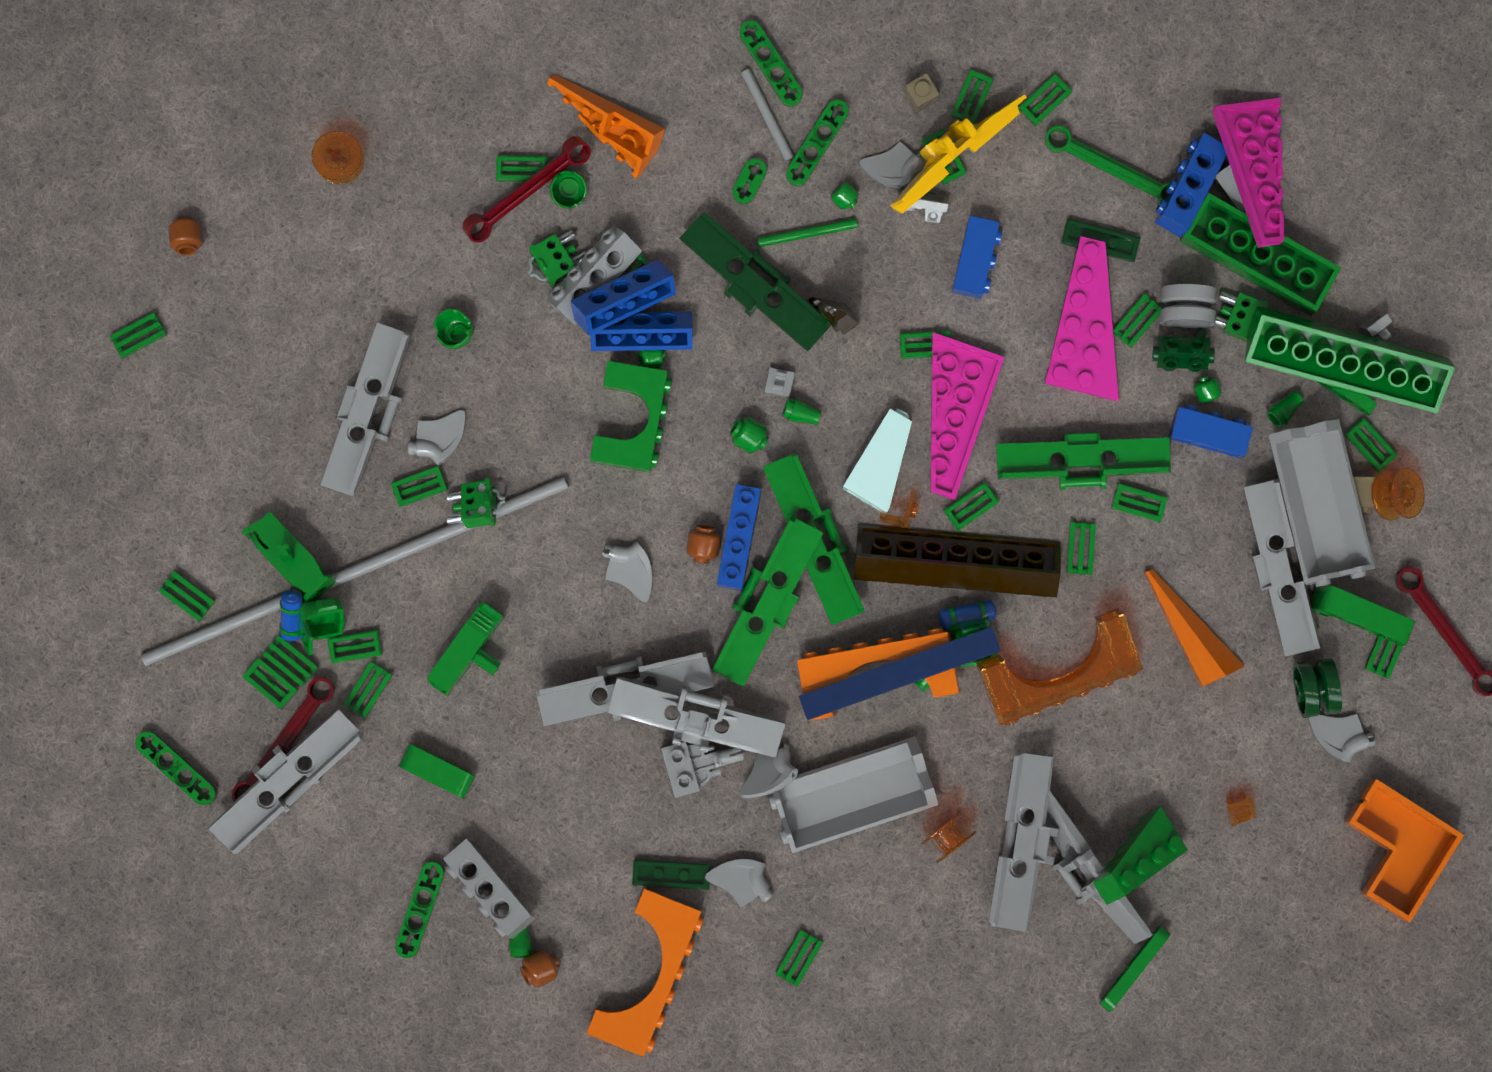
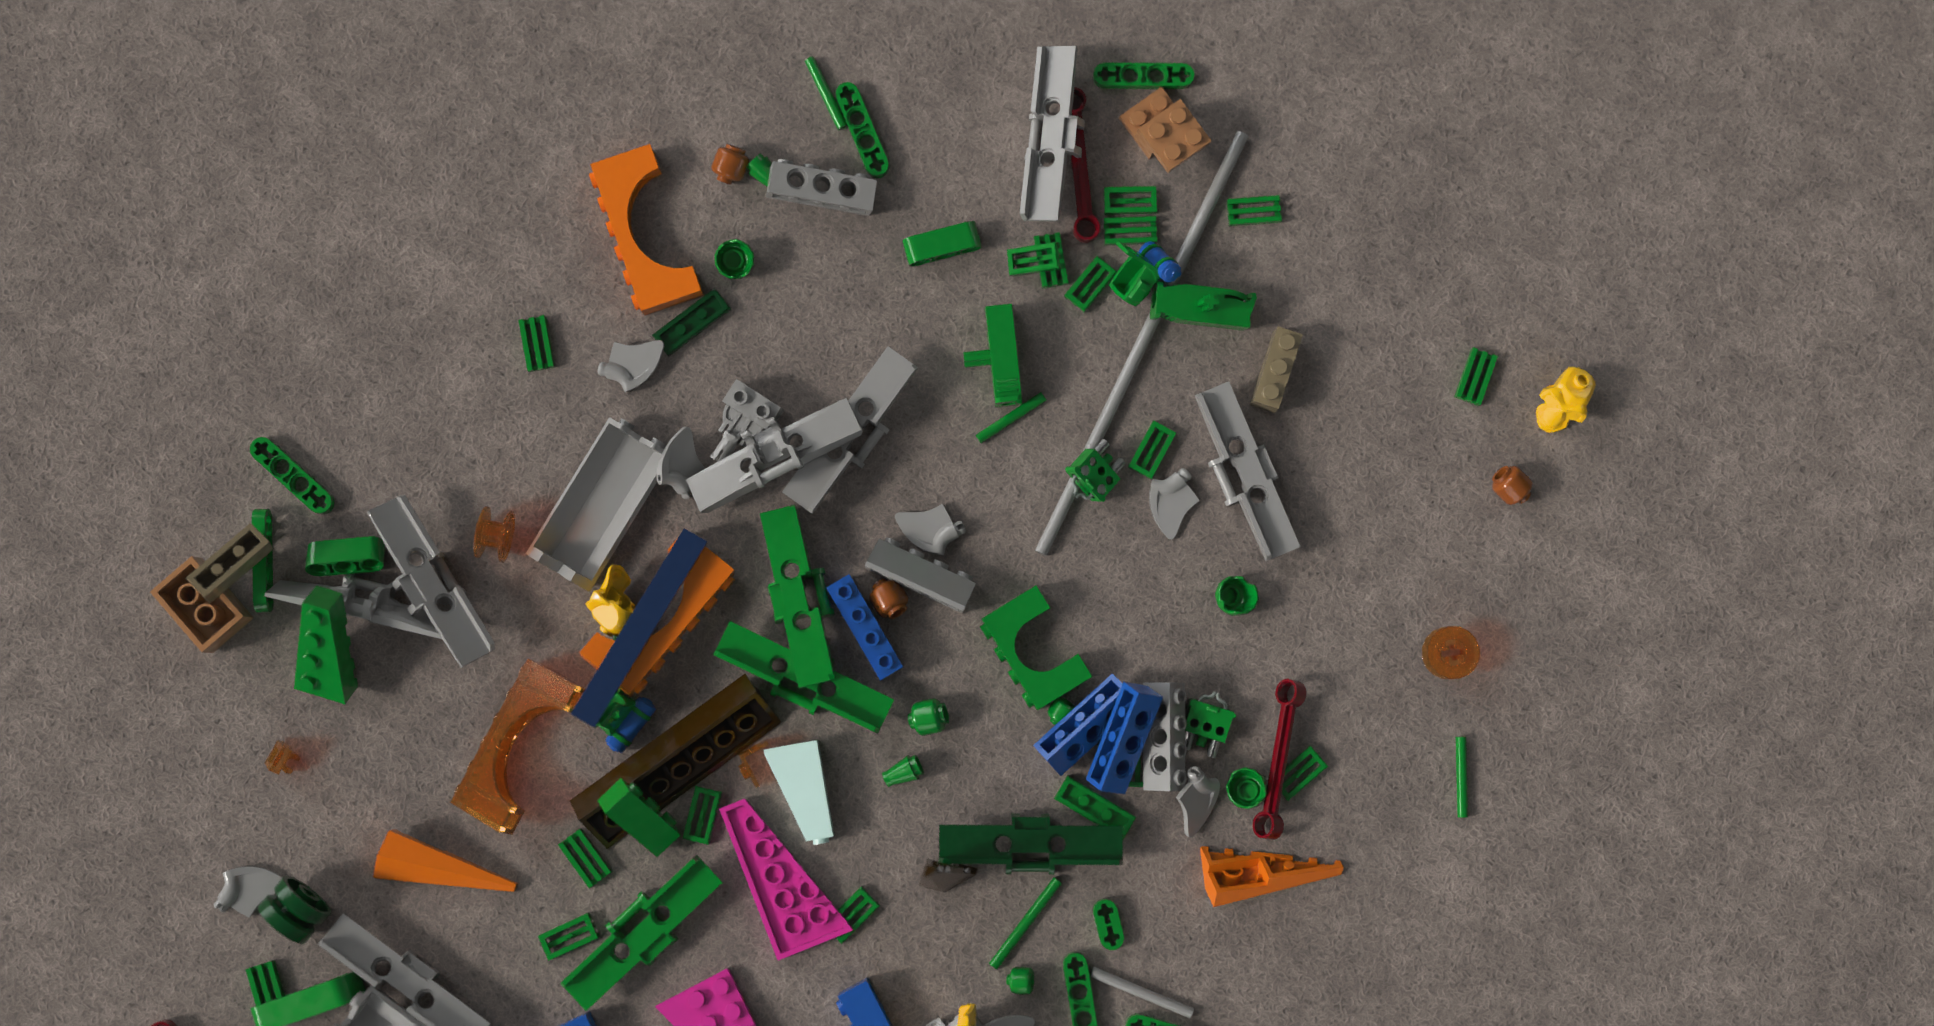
camera: 130 degrees right, 0 degrees up
(90, 262) = (1565, 400): none -> yellow head
(198, 711) = (1165, 129): none -> medium nougat bracket
(278, 465) = (1276, 369): none -> dark tan brick
(363, 687) = (1055, 256): none -> green tile
(410, 65) = (1461, 777): none -> green bar
(422, 962) = (825, 93): none -> green bar
(500, 599) = (1010, 417): none -> green bar
(599, 892) = (734, 259): none -> green hair
(609, 211) = (1197, 799): none -> light grey arm
(666, 539) = (921, 575): none -> light grey slope
(687, 272) = (1093, 805): none -> green tile
(779, 382) = (941, 780): light grey tile -> none
(907, 711) = (610, 604): none -> yellow head
(1015, 540) = (639, 816): none -> green brick
(1061, 1014) = (294, 473): none -> green beam
(1071, 917) = (345, 556): none -> green beam
(1157, 978) = (230, 563): none -> dark tan brick
(1205, 971) = (202, 622): none -> medium nougat brick
(1415, 846) = (110, 848): orange piece -> none

